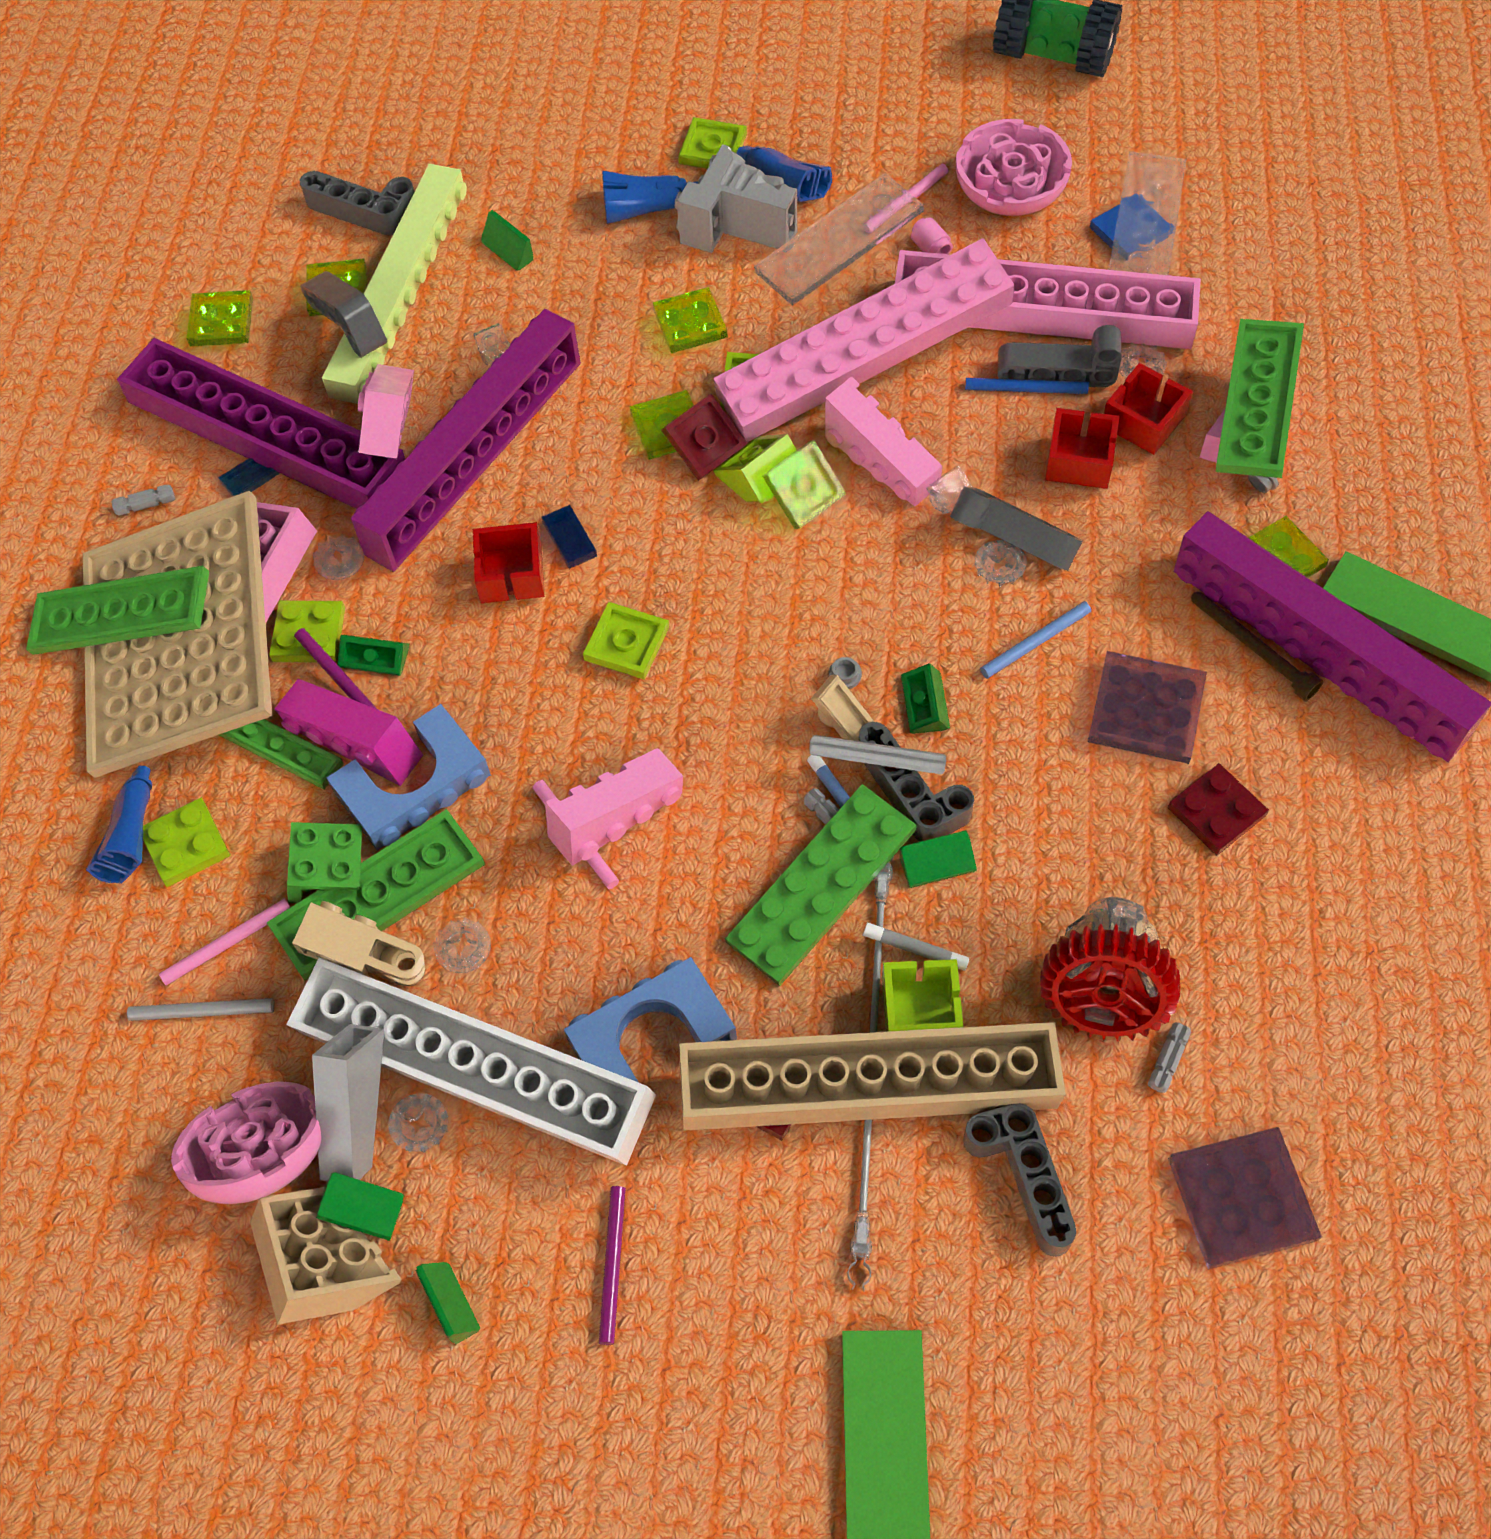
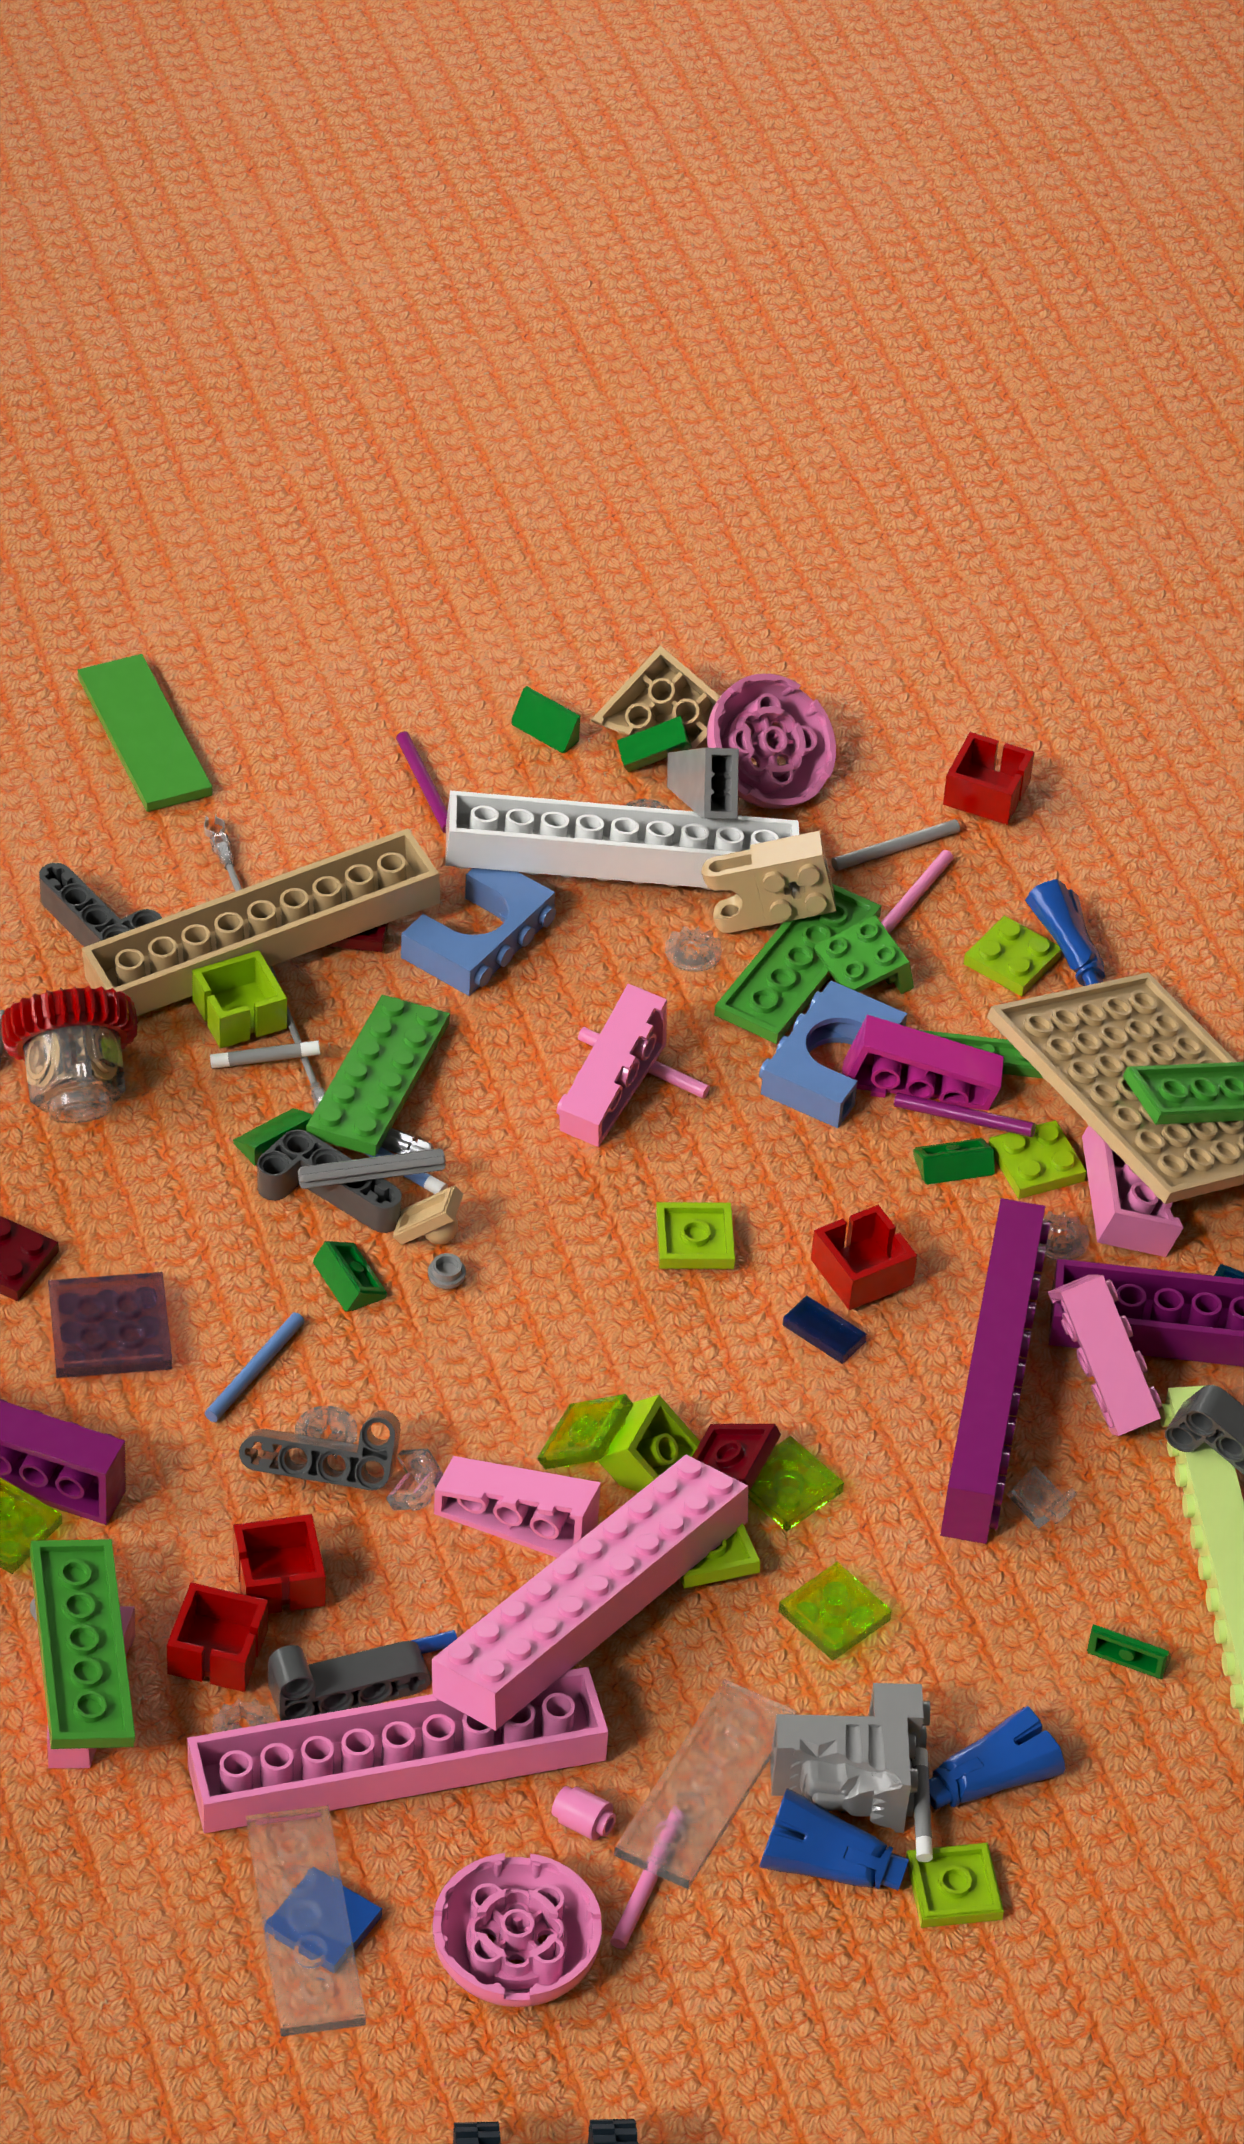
camera: 150 degrees right, 15 degrees down
(71, 1044) = (979, 789): none -> red piece

